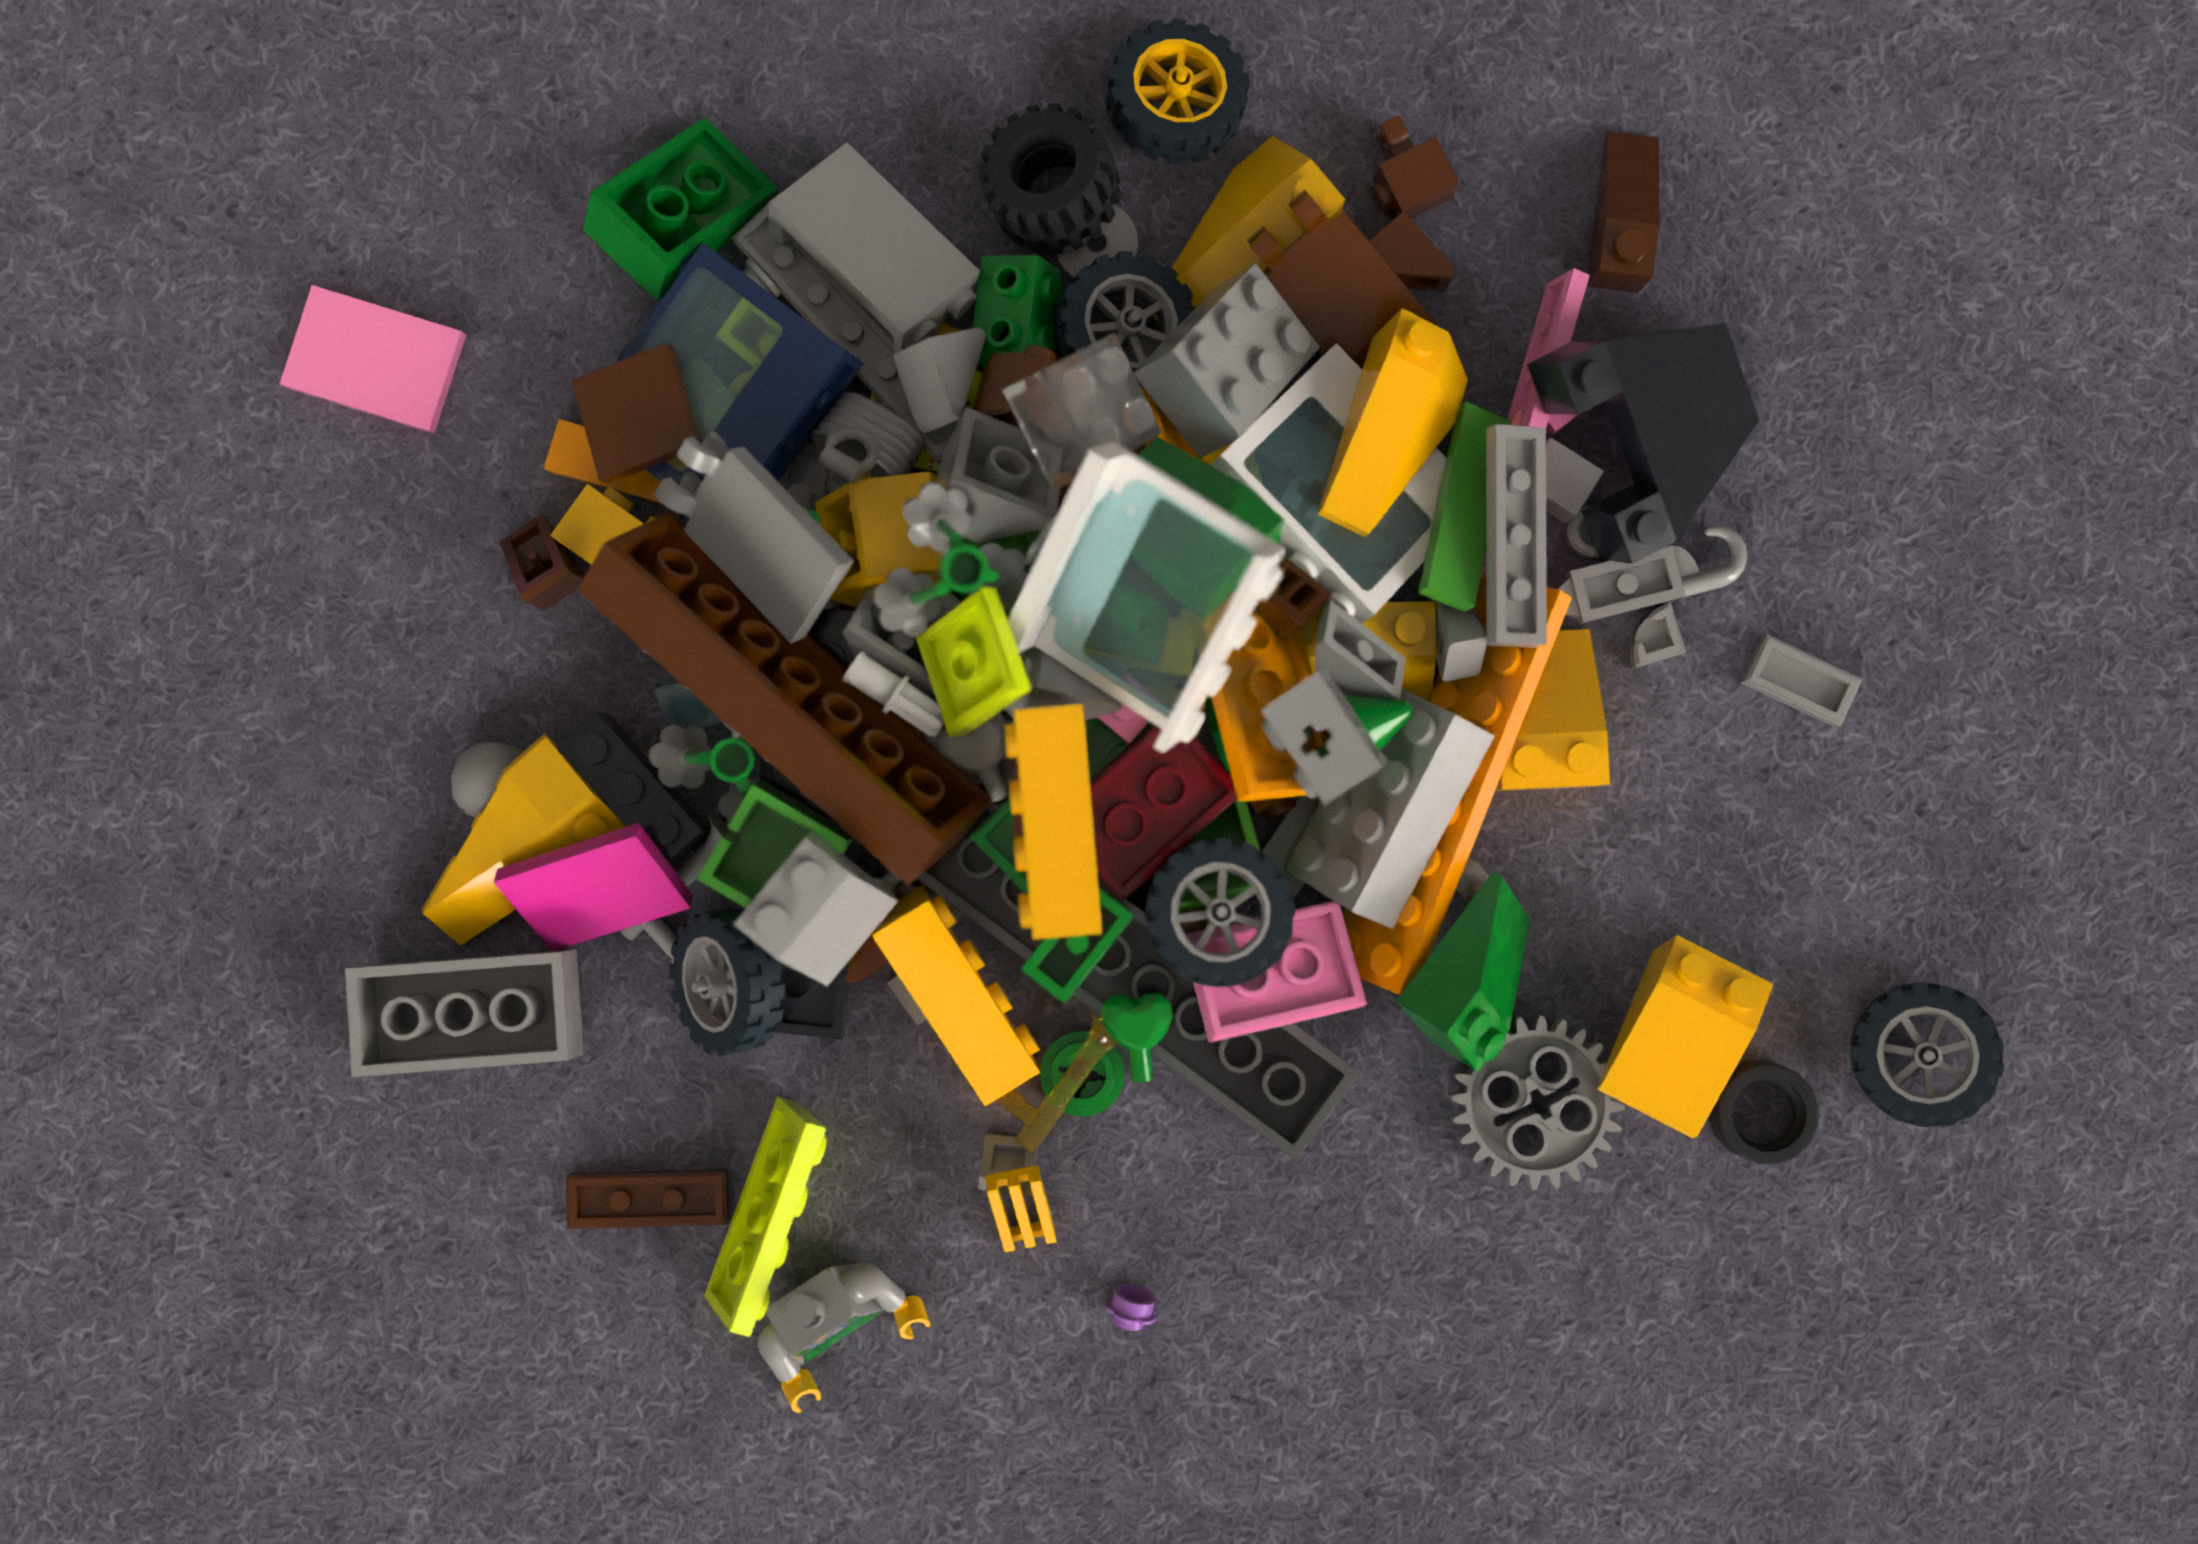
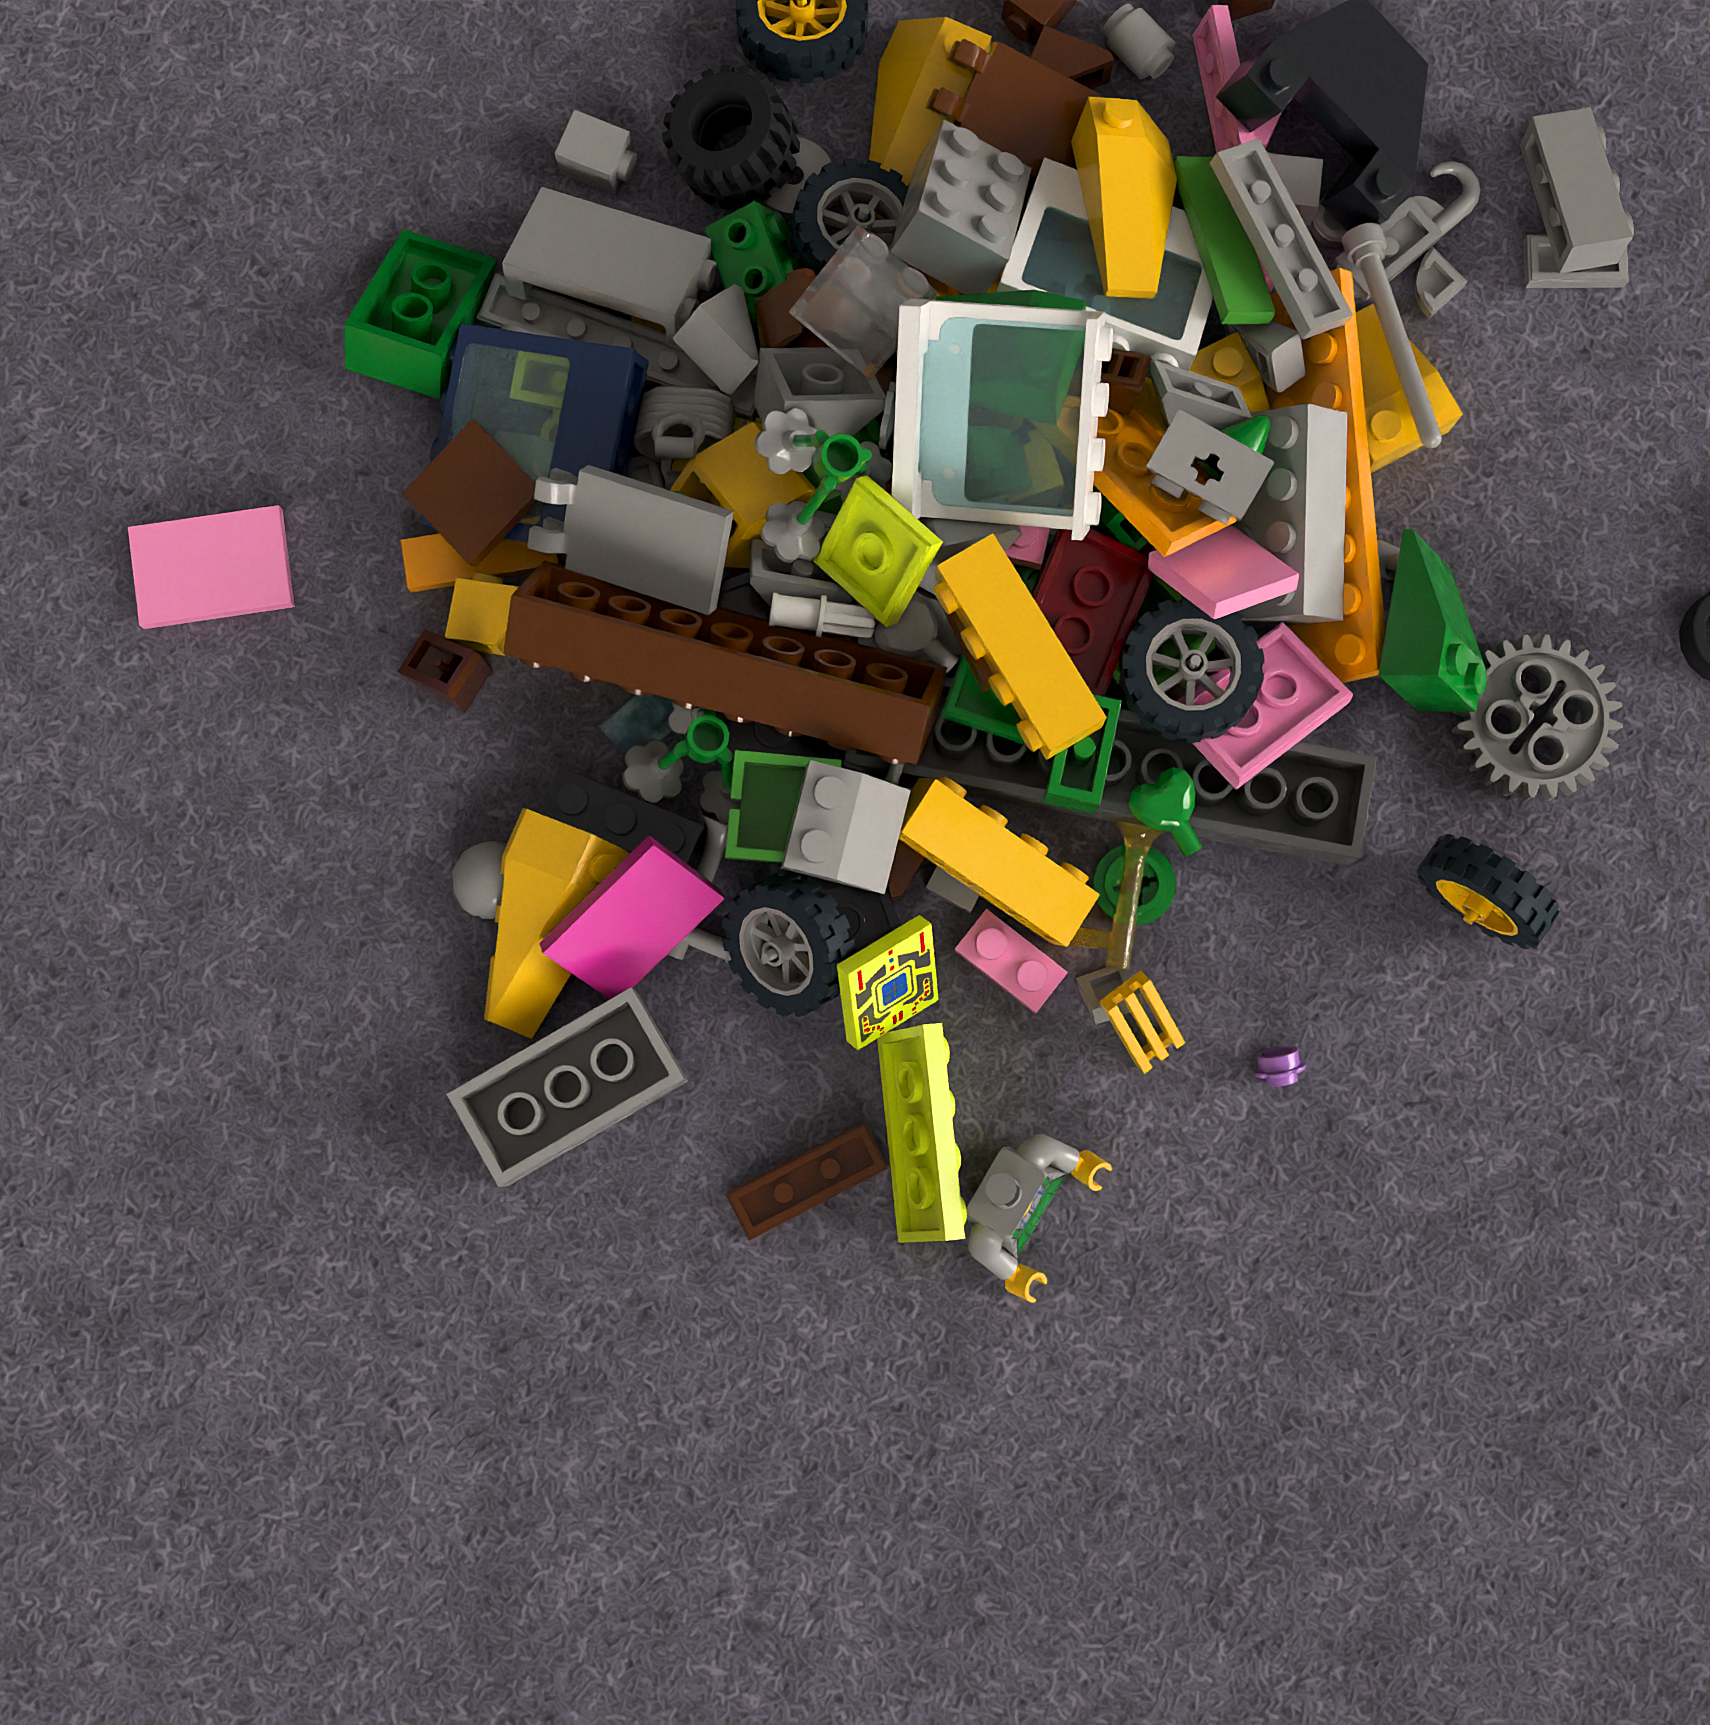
camera: 30 degrees left, 5 degrees down
(801, 1060) = (888, 982): none -> neon yellow tile
(918, 130) = (595, 152): none -> light grey brick
(933, 1088) = (1010, 961): none -> bright pink plate
(1296, 841) = (1224, 572): none -> bright pink tile
(1400, 1249) = (1488, 891): none -> black wheel
(1489, 268) = (1139, 42): none -> light grey brick
(1600, 579) = (1366, 249): none -> light grey piece
(1684, 1034) = (1633, 595): yellow slope -> none
(1834, 616) = (1576, 190): none -> light grey brick

